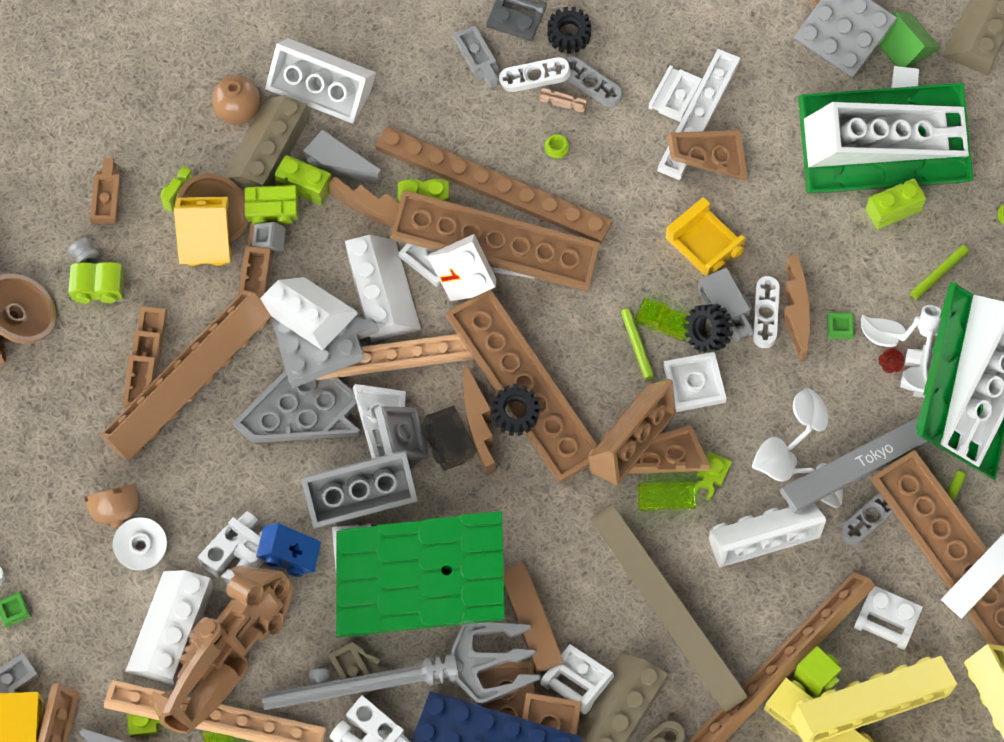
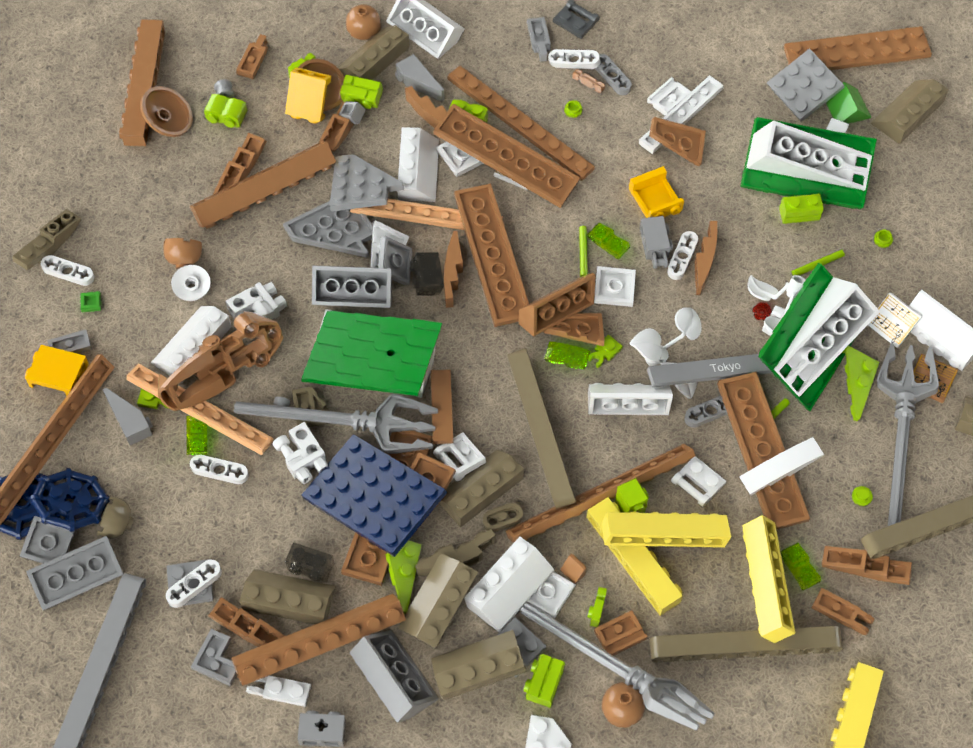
camera: 15 degrees right, 5 degrees down
(288, 549) = (289, 313): blue brick -> none
(307, 310) = (358, 162): white slope -> none
(309, 180) = (392, 83): lime brick -> none
(463, 269) = (477, 166): white slope -> none
(520, 395) = (479, 256): black tyre -> none
(573, 18) = (609, 29): black tyre -> none
(719, 323) = (643, 255): black tyre -> none
(840, 325) = (733, 279): bright green tile -> none

